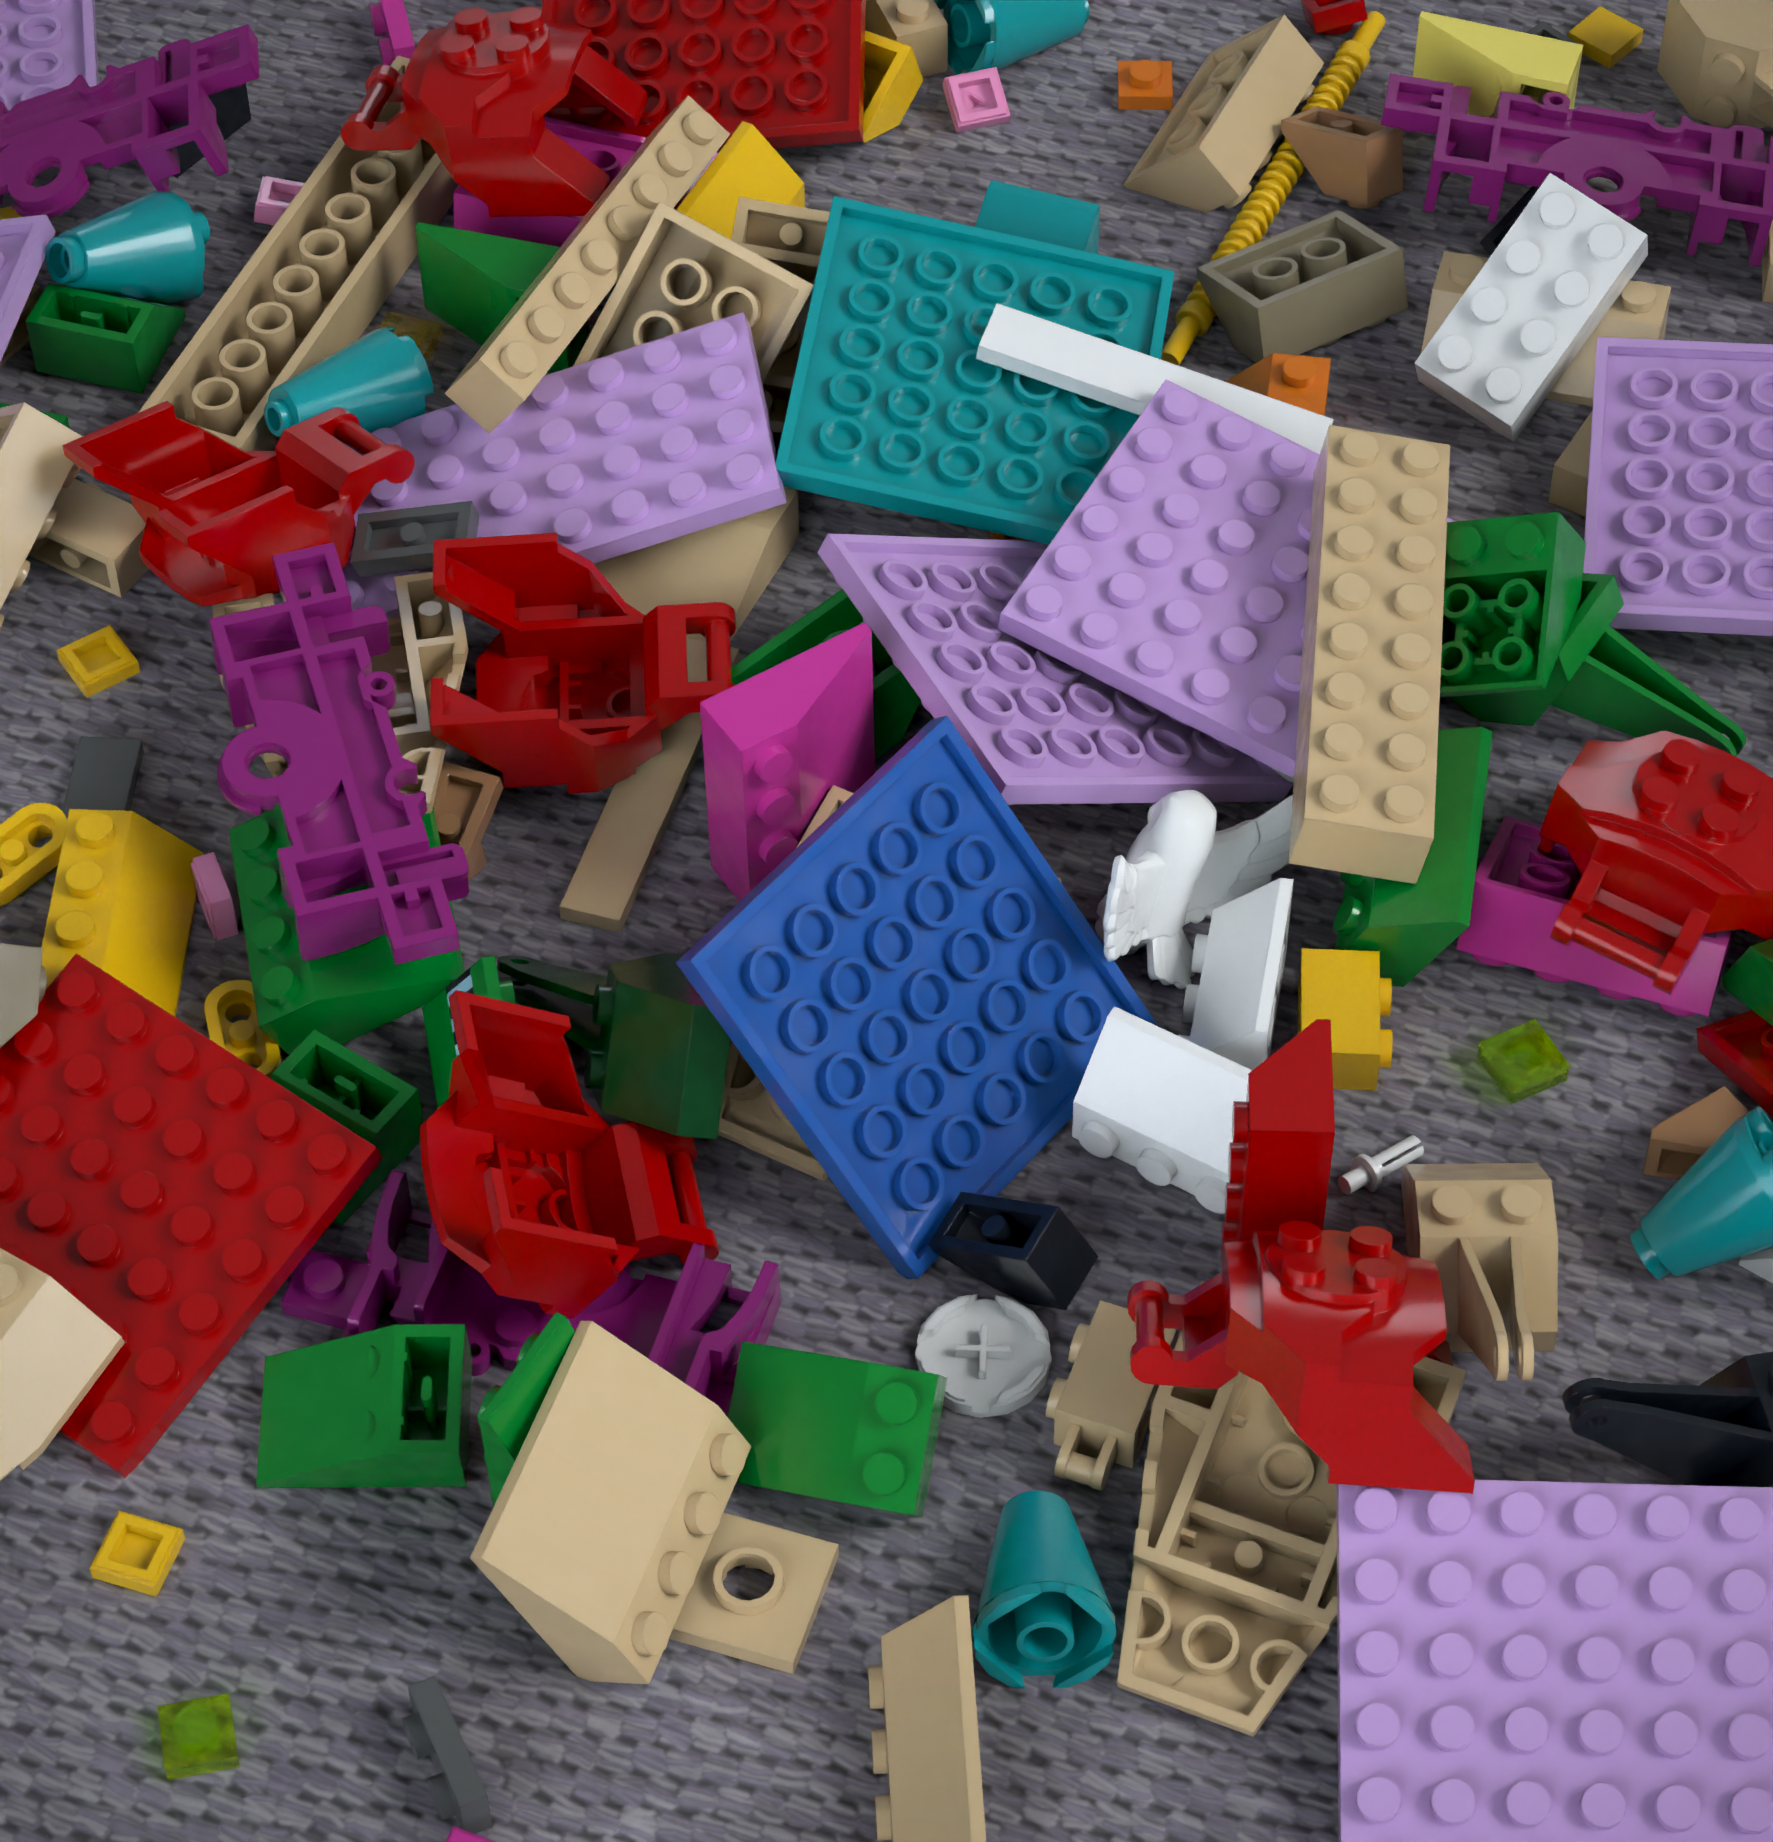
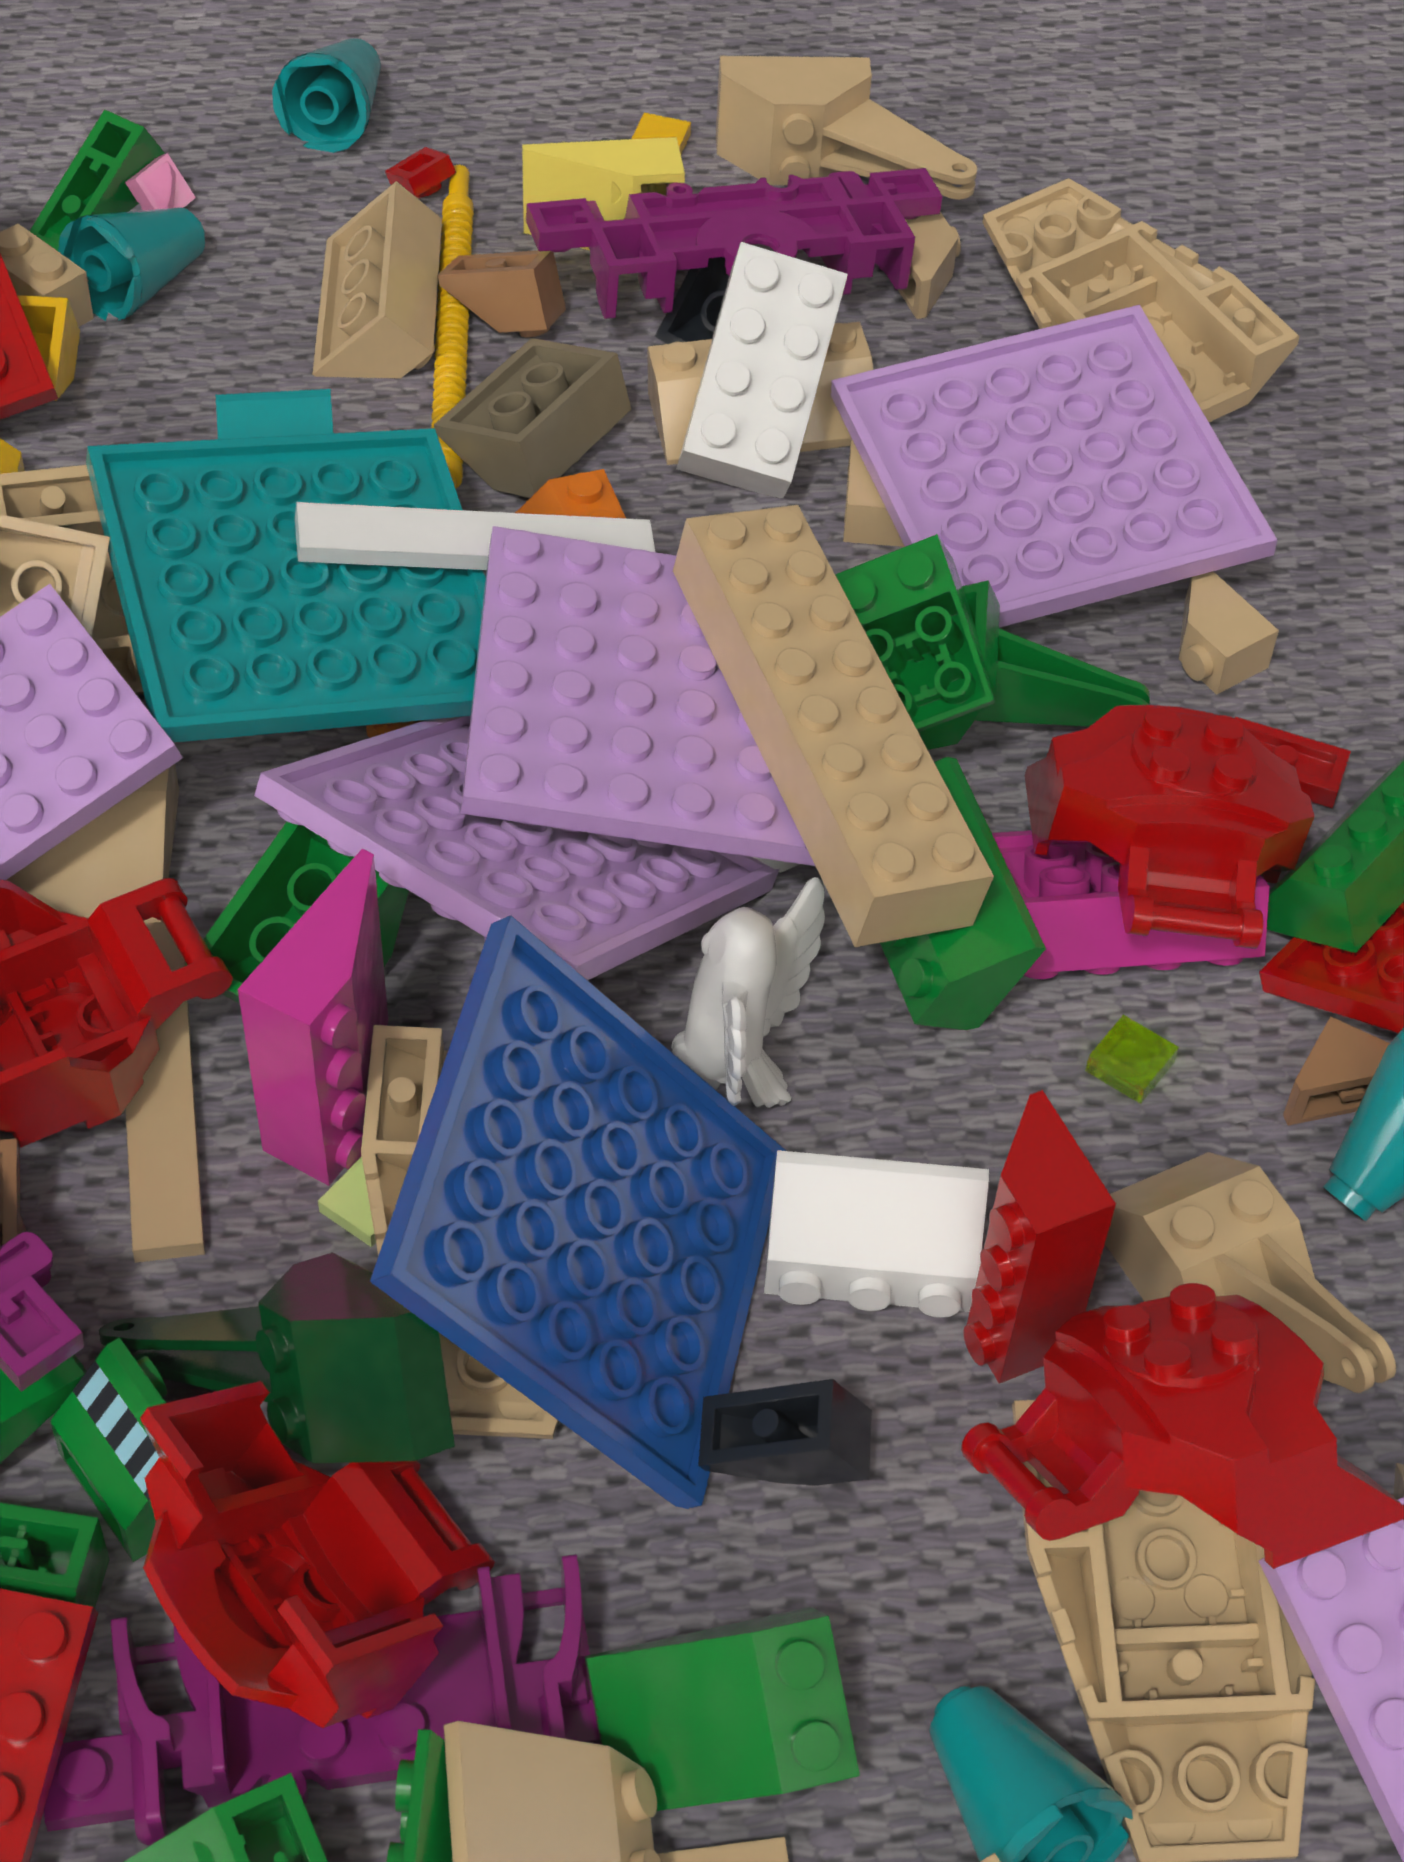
camera: 30 degrees left, 0 degrees up
(976, 99) = (138, 335): bright pink tile -> none
(988, 1352) = (808, 1554): white tile -> none
(1101, 1403) = (961, 1552): tan brick -> none
(1145, 85) = (285, 282): orange plate -> none
(1240, 975) = (855, 1074): white slope -> none
(1351, 994) = (953, 1080): yellow brick -> none

